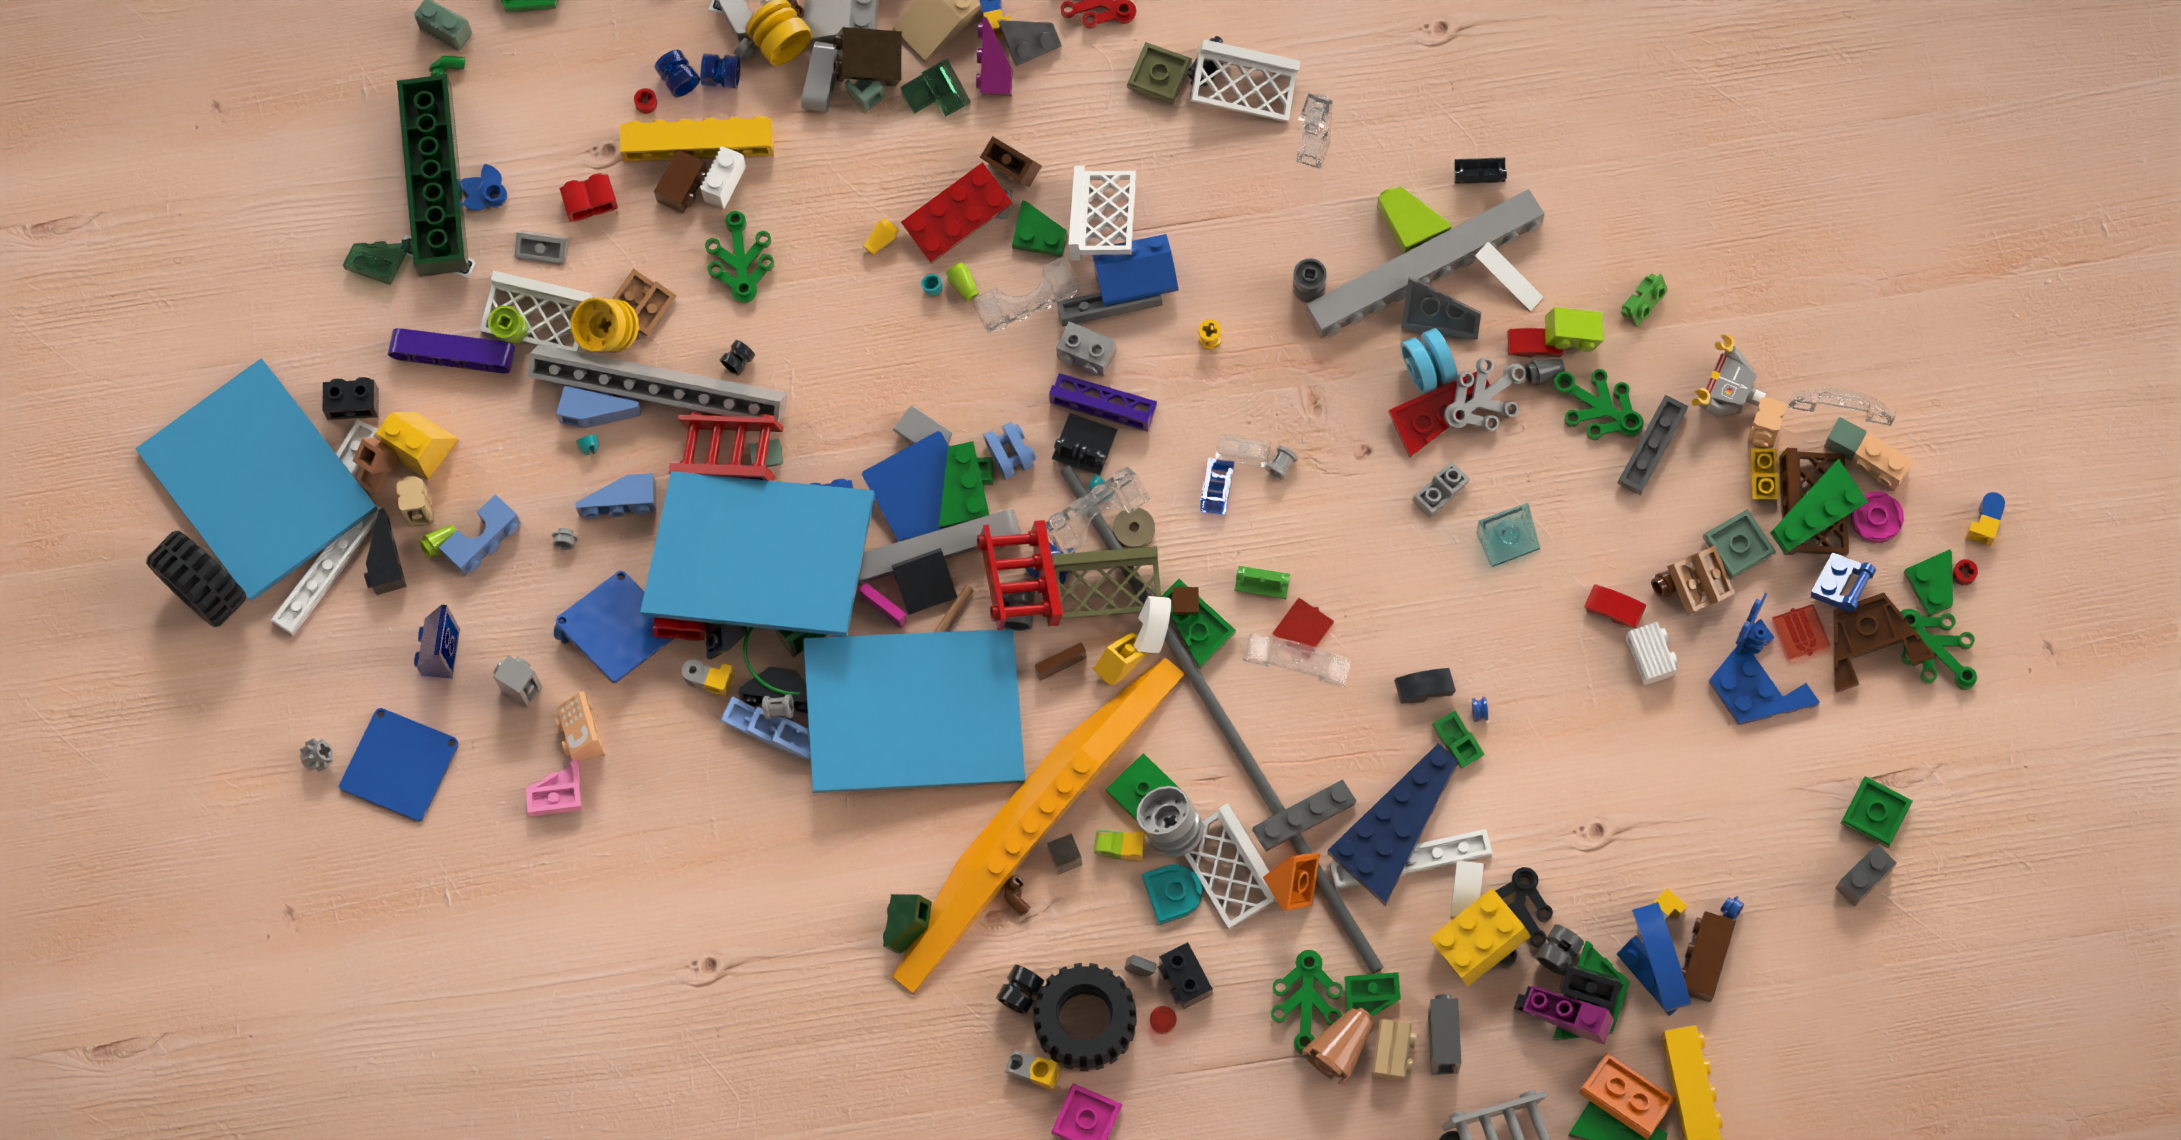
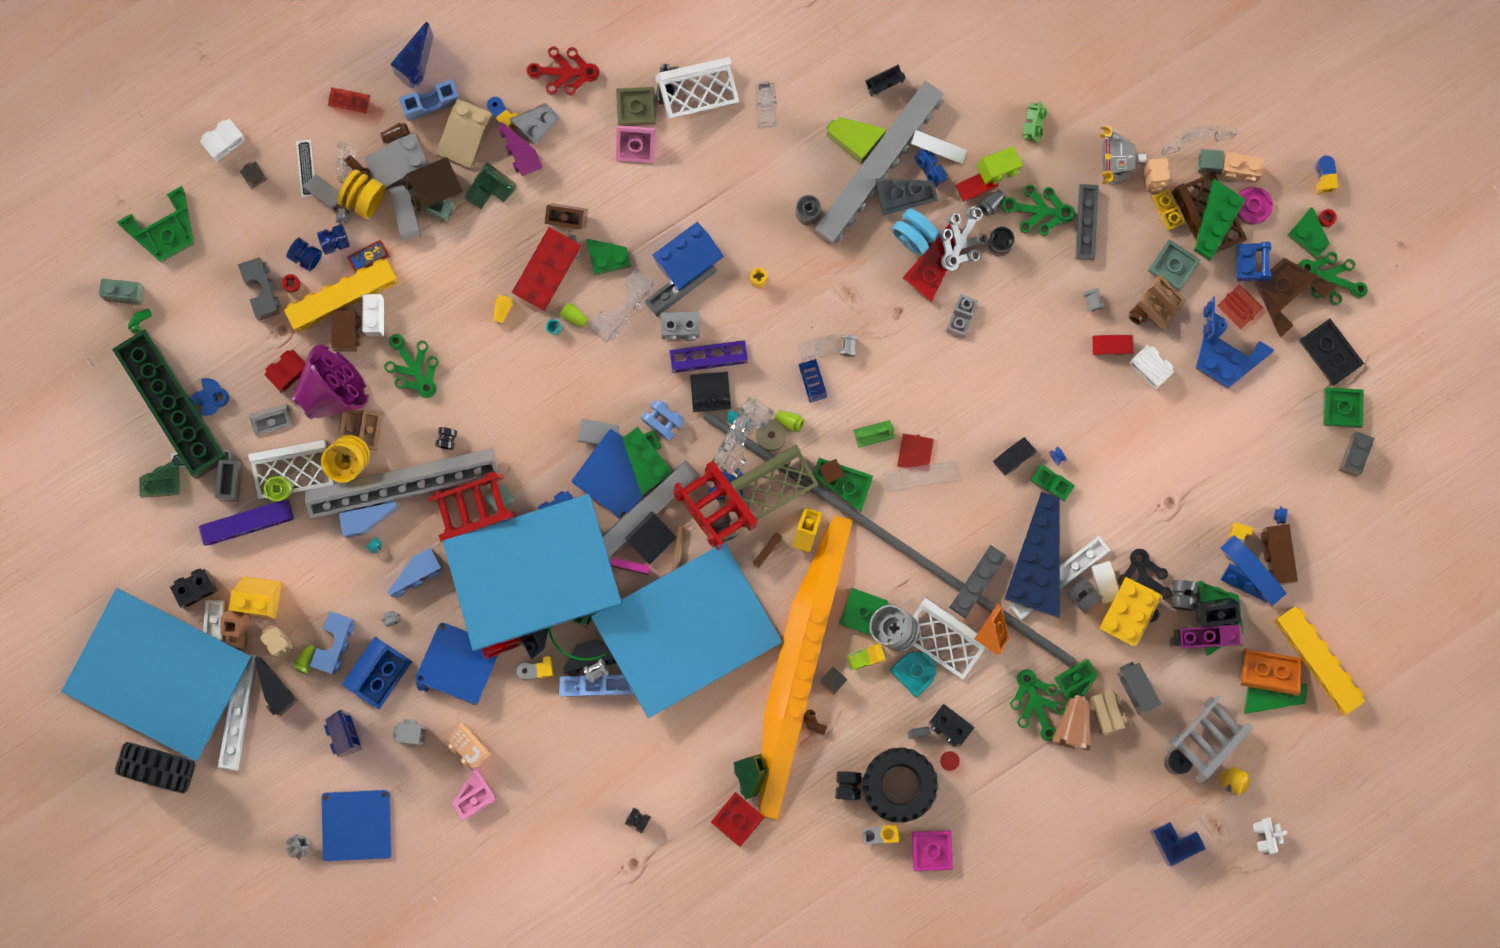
camera: 30 degrees left, 10 degrees up
(455, 292) = (228, 480): none -> dark grey brick
(515, 594) = (377, 673): none -> blue slope
(604, 110) = (265, 304): none -> dark grey arch
(628, 230) = (329, 385): none -> magenta cone
(739, 911) = (637, 820): none -> black wheel
(753, 106) = (368, 255): none -> tile
(863, 968) = (737, 819): none -> red plate
(1079, 212) = (634, 235): white fence -> none
(1137, 115) = (635, 144): none -> bright pink slope
(1155, 621) = (818, 494): white slope -> none
(1165, 520) = (790, 420): none -> lime cone
(1434, 901) = (1089, 600): none -> dark grey wheel
(1485, 286) = (926, 160): none -> blue hinge
(1508, 535) = (1022, 328): clear light blue slope -> none
(1531, 419) = (1000, 241): none -> black wheel
(1616, 541) = (1093, 300): none -> light grey bush
(1893, 738) = (1331, 352): none -> black tile

